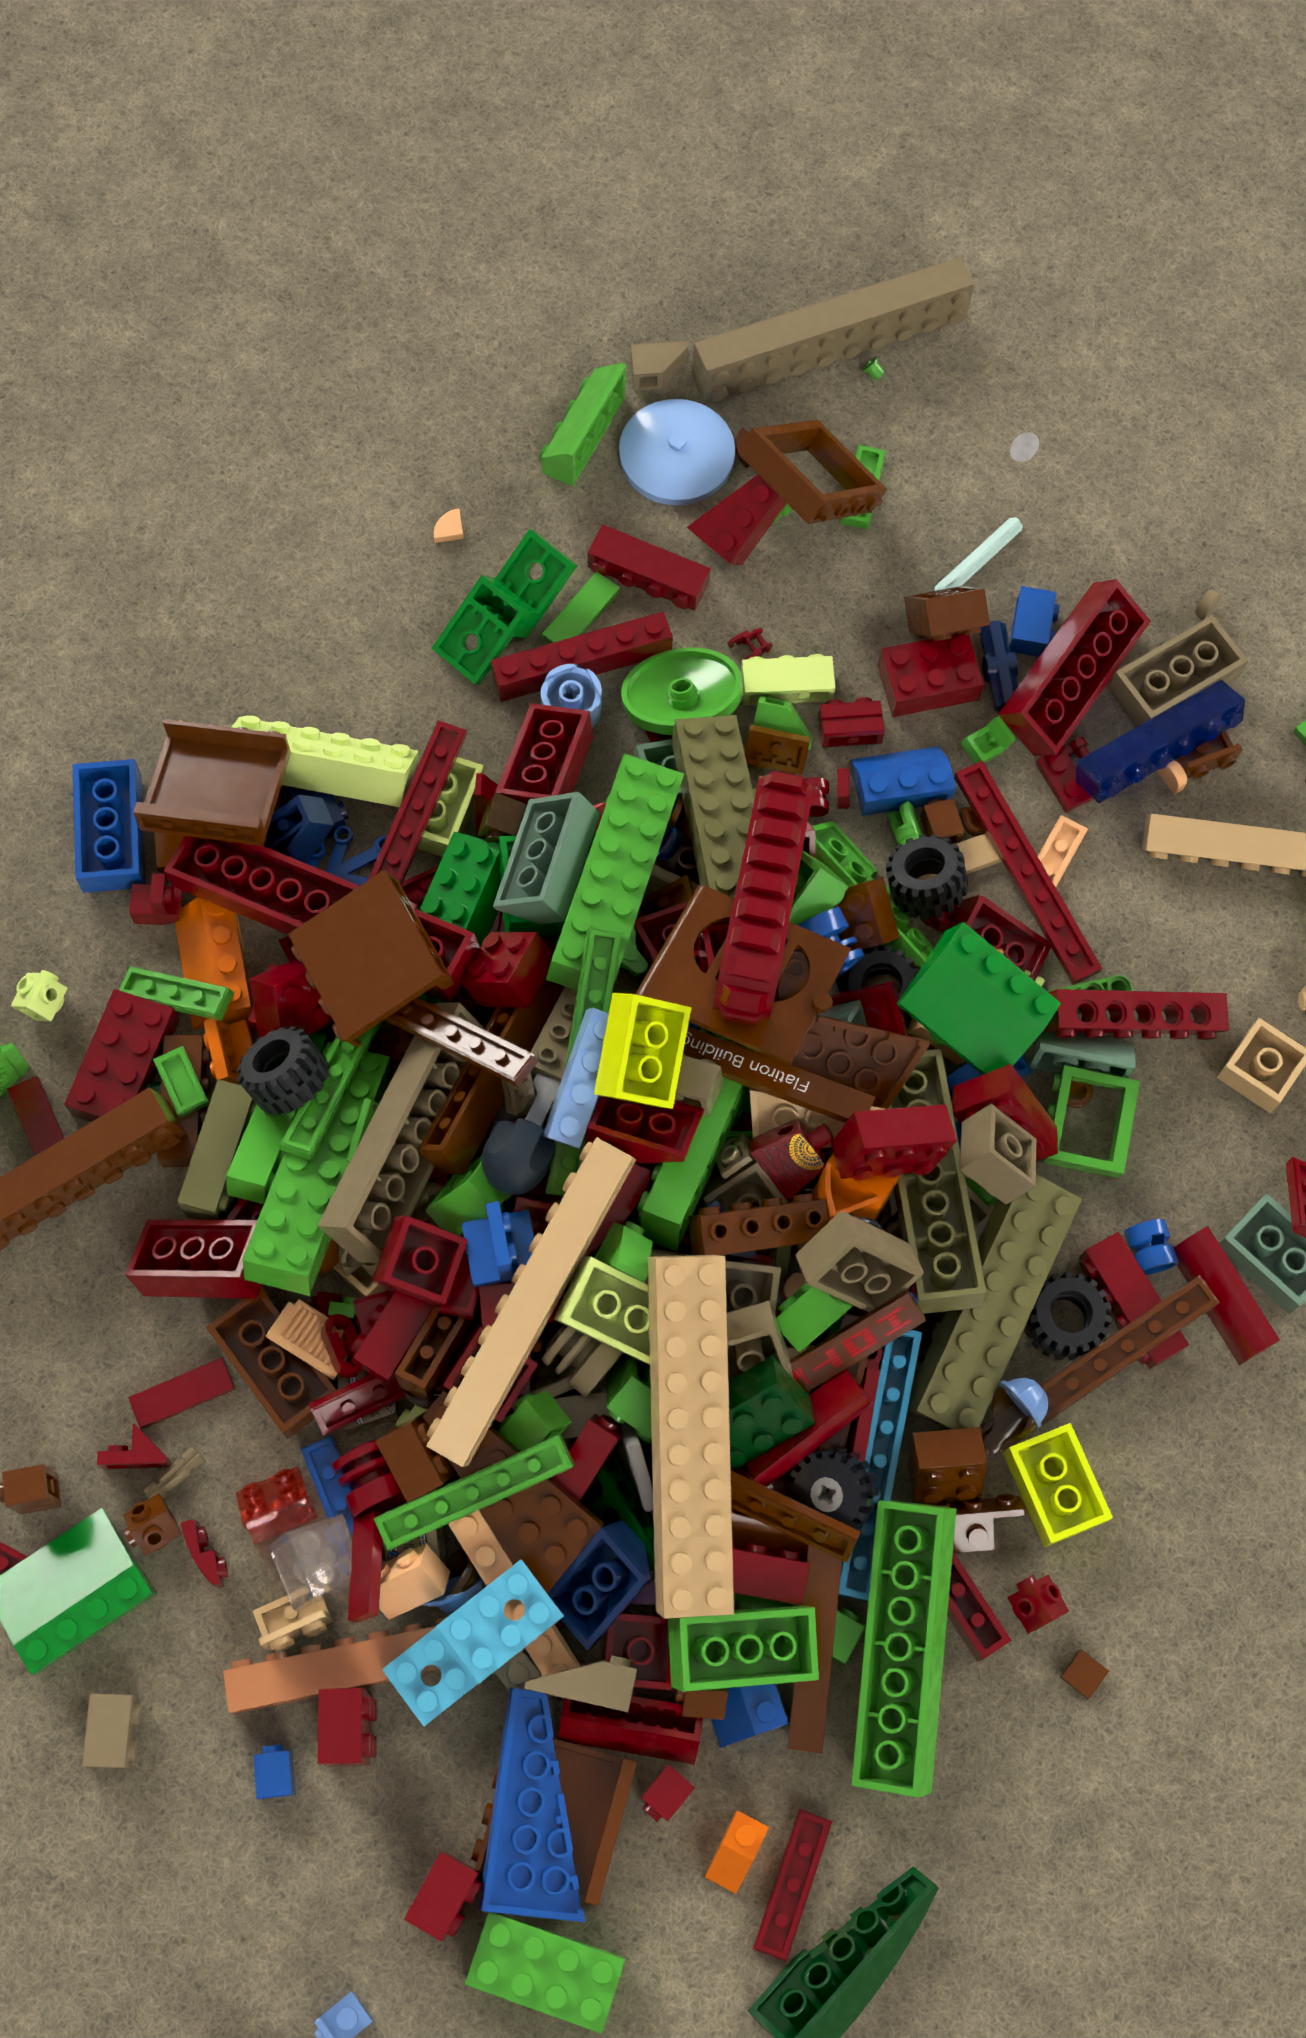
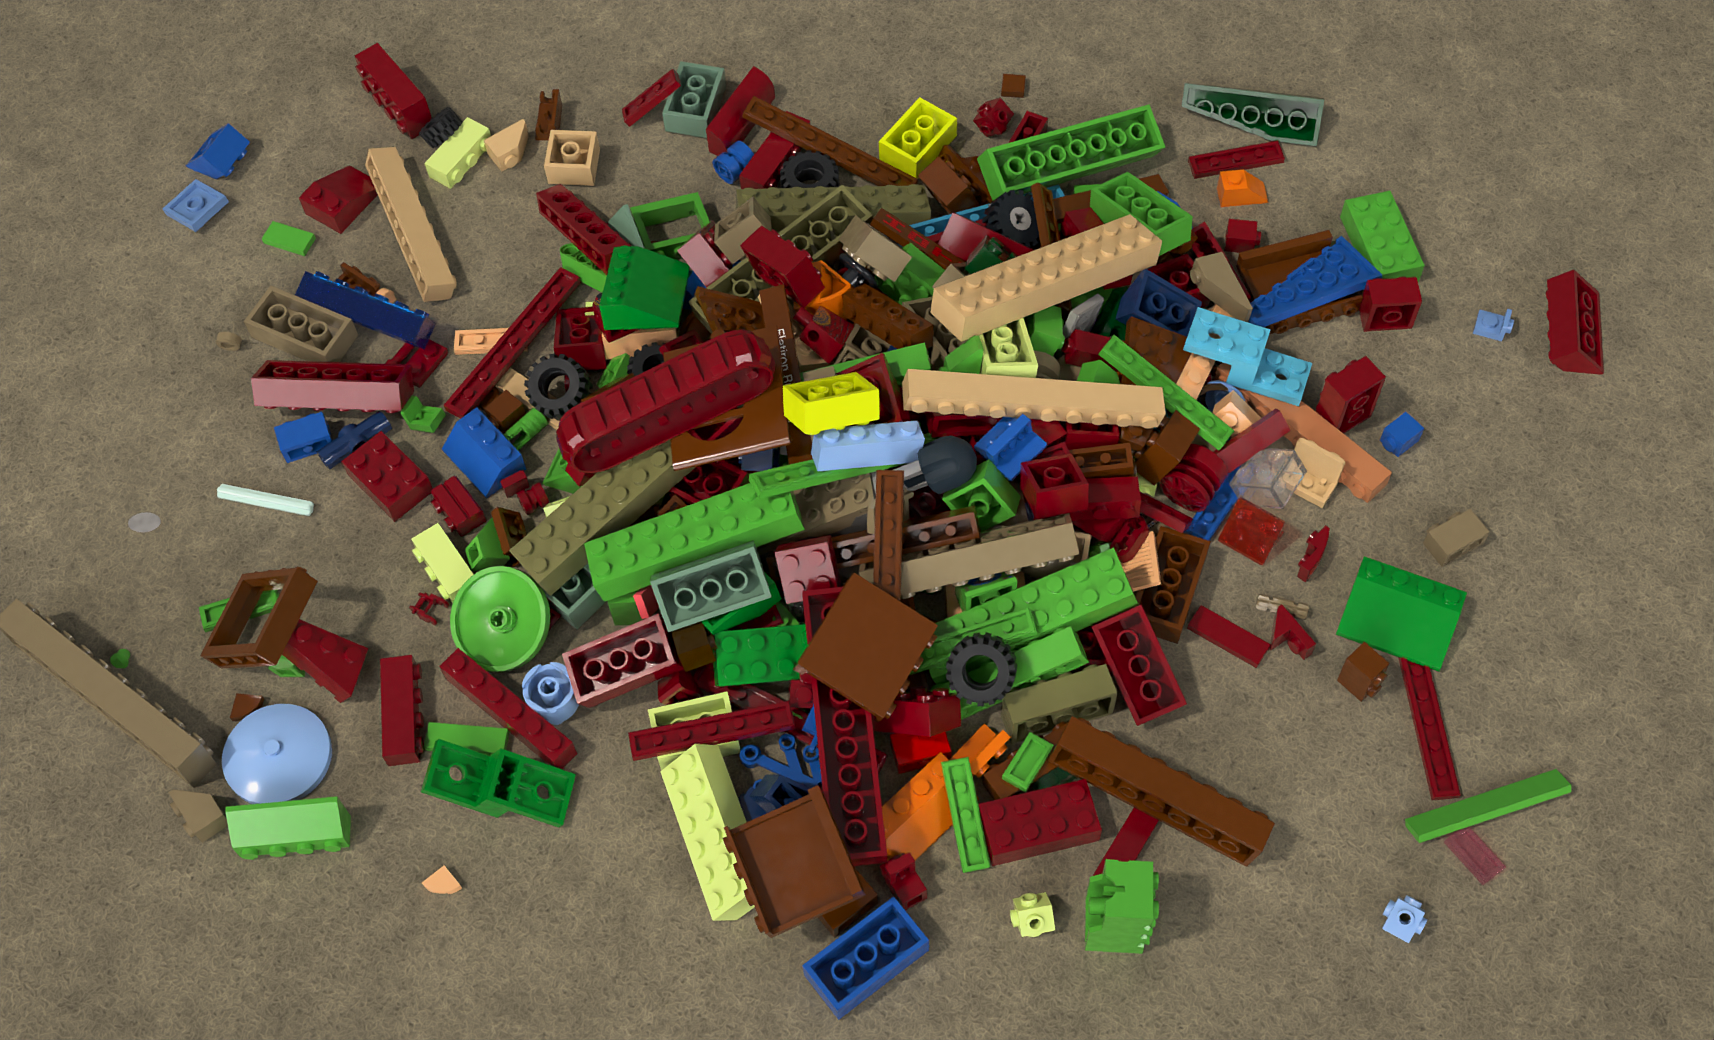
camera: 115 degrees left, 10 degrees down
(151, 1525) = (1324, 592): reddish brown brick -> none
(947, 611) = (334, 476): reddish brown brick -> none
(1016, 1412) = (890, 168): piece -> none

